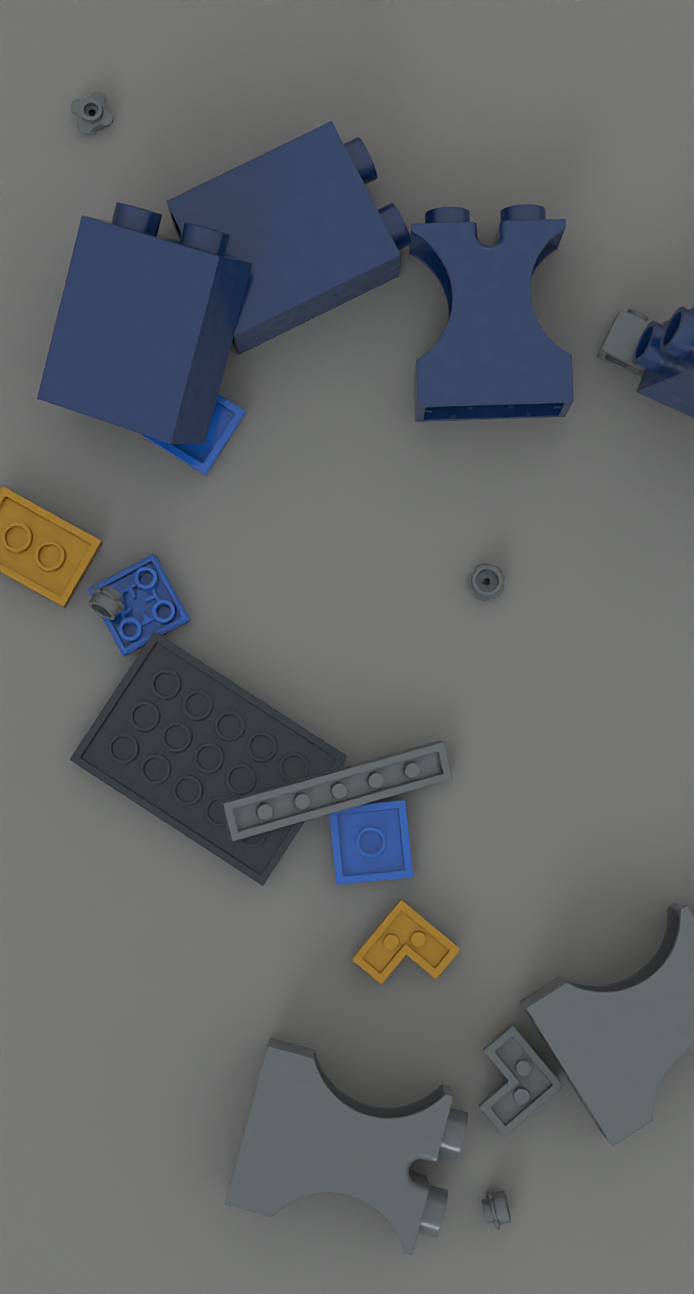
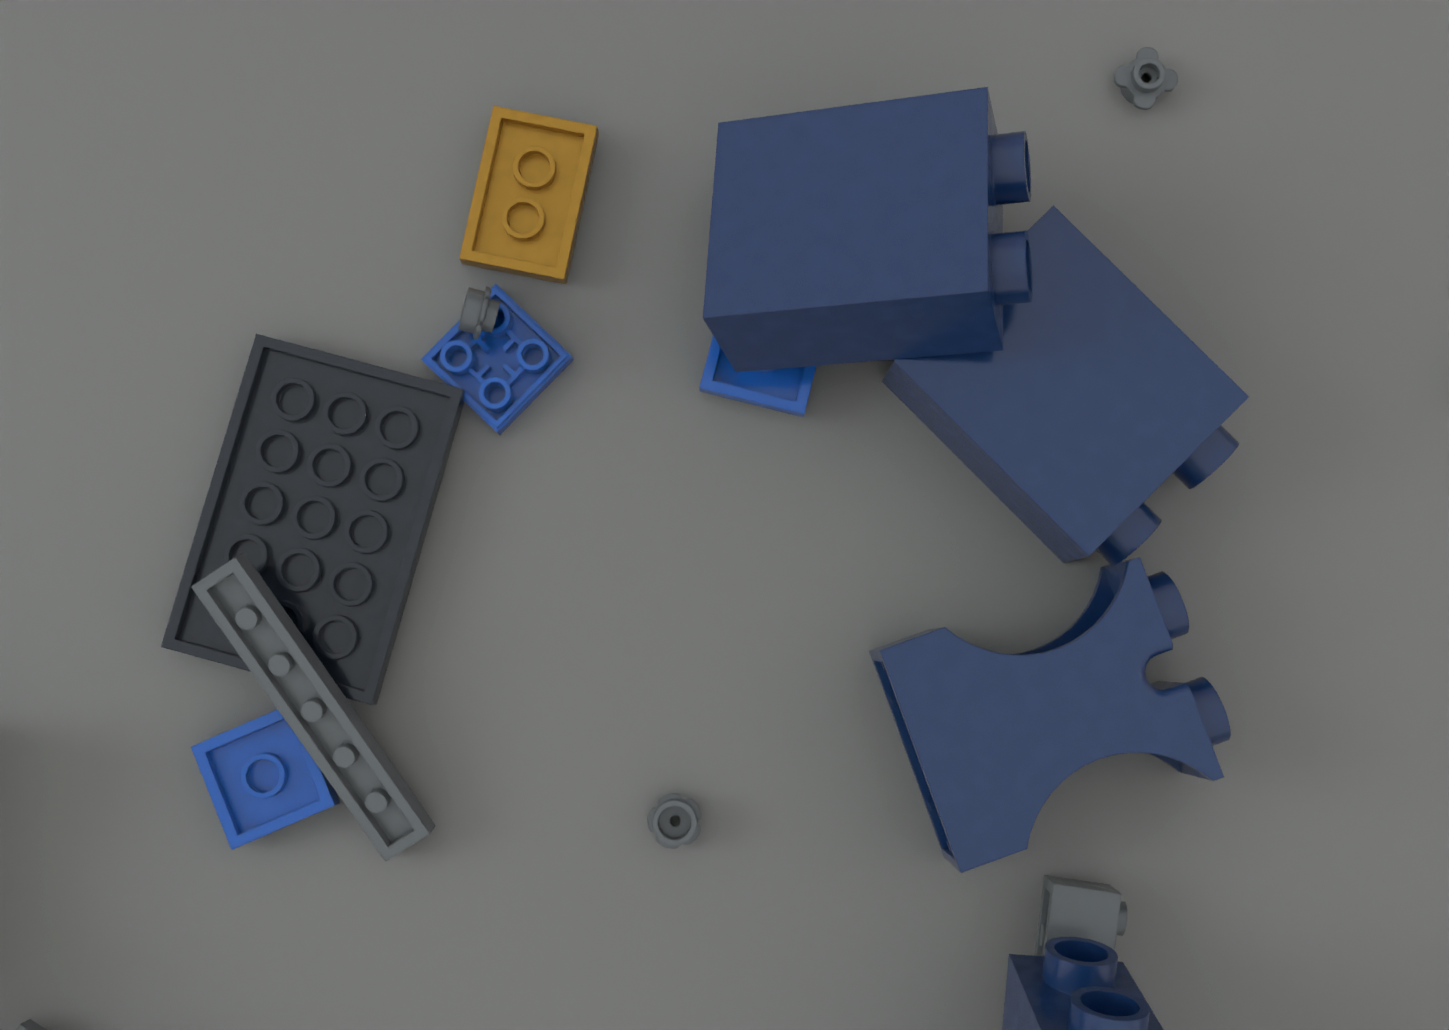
camera: 75 degrees right, 0 degrees up
(404, 934) = (152, 864): pearl gold plate -> none

